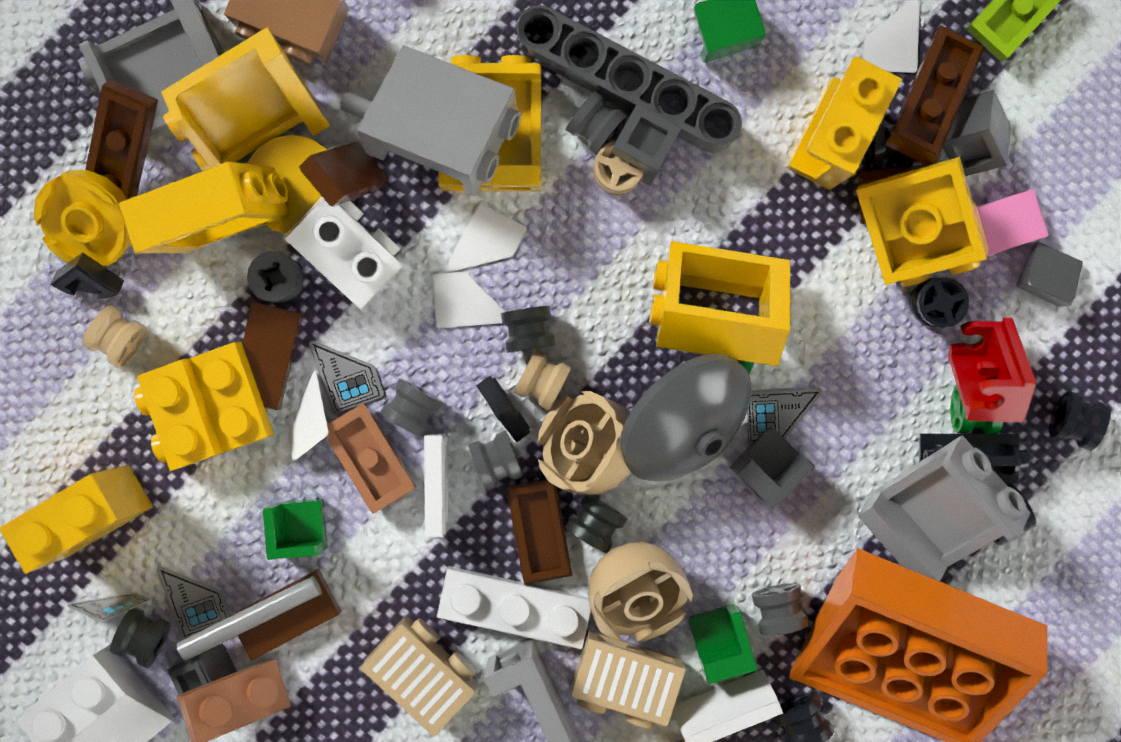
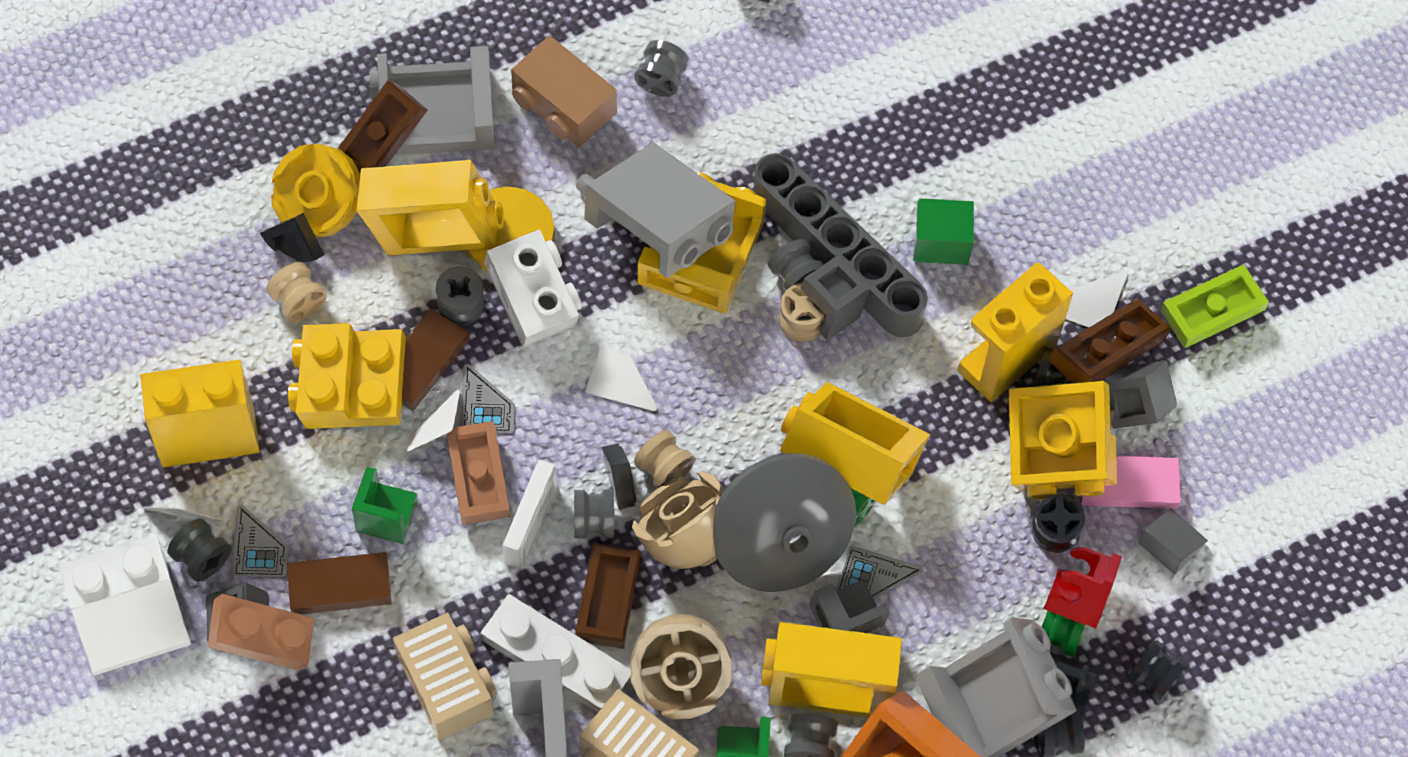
camera: 20 degrees right, 25 degrees down
(240, 102) = (503, 135): yellow panel -> none
(248, 618) = (307, 566): light grey bar -> none
(343, 173) = (559, 225): reddish brown tile -> none
(411, 407) = (535, 441): dark grey wheel -> none
(486, 239) = (660, 335): white sticker -> none
(528, 328) = (669, 411): pearl dark grey wheel -> none
(596, 523) = (665, 597): pearl dark grey wheel -> none
(784, 547) = (830, 669): none -> yellow window

